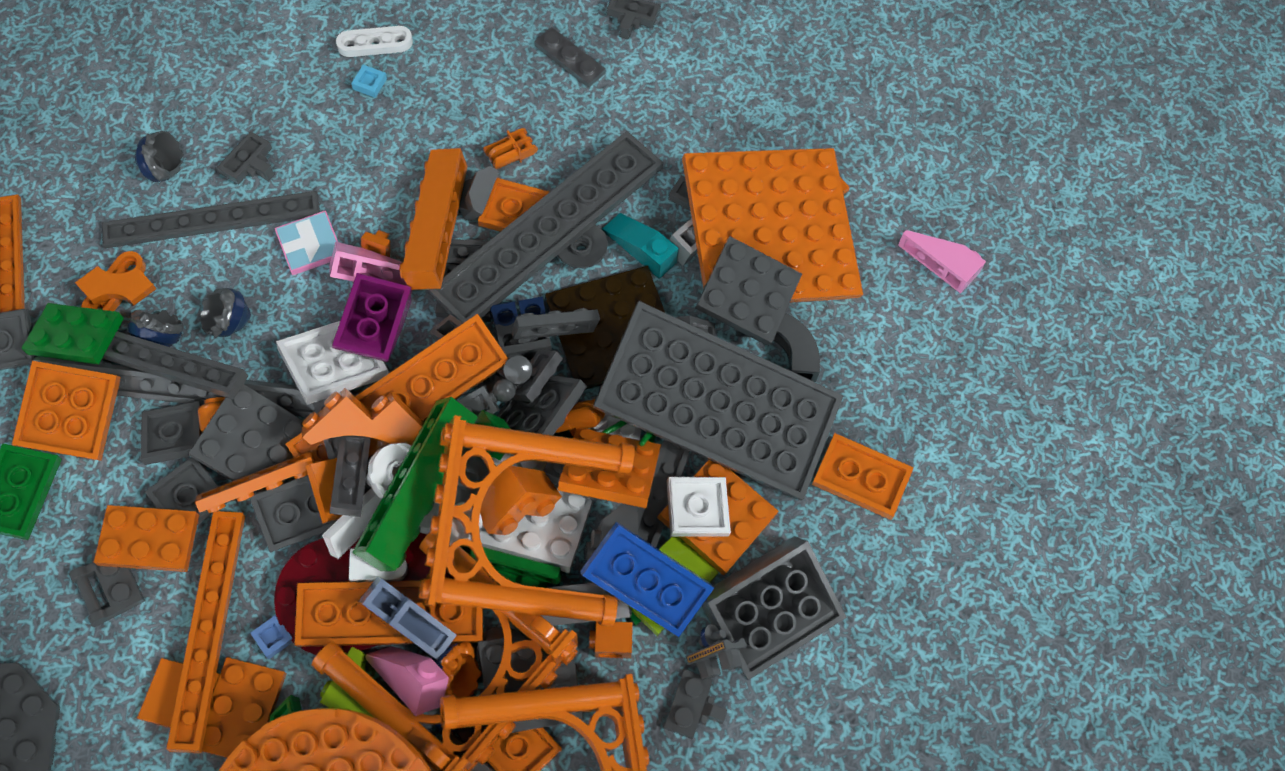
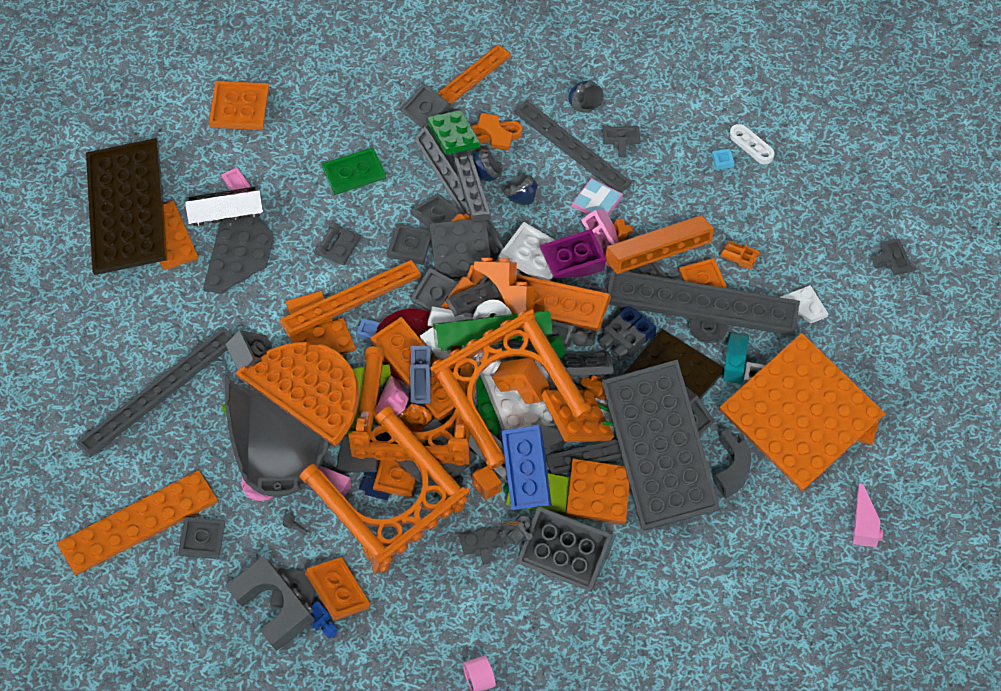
camera: 60 degrees right, 10 degrees down
(66, 410) = (411, 160): orange plate -> none
(146, 538) = (374, 241): orange plate -> none
(244, 487) = (431, 262): orange plate -> none
(477, 192) = (697, 255): dark grey slope -> none
(517, 369) = (596, 336): dark grey pin -> none
(522, 566) = (489, 409): green tile -> none
(543, 367) = (611, 350): flat silver plate -> none
(555, 323) = (641, 339): dark grey plate -> none
(570, 57) = (832, 246): flat silver plate -> none
(615, 124) = (810, 306): none -> white wing
(698, 507) = (591, 473): white tile -> none
(748, 291) = (743, 420): dark grey plate -> none
(863, 476) = (682, 552): orange plate -> none

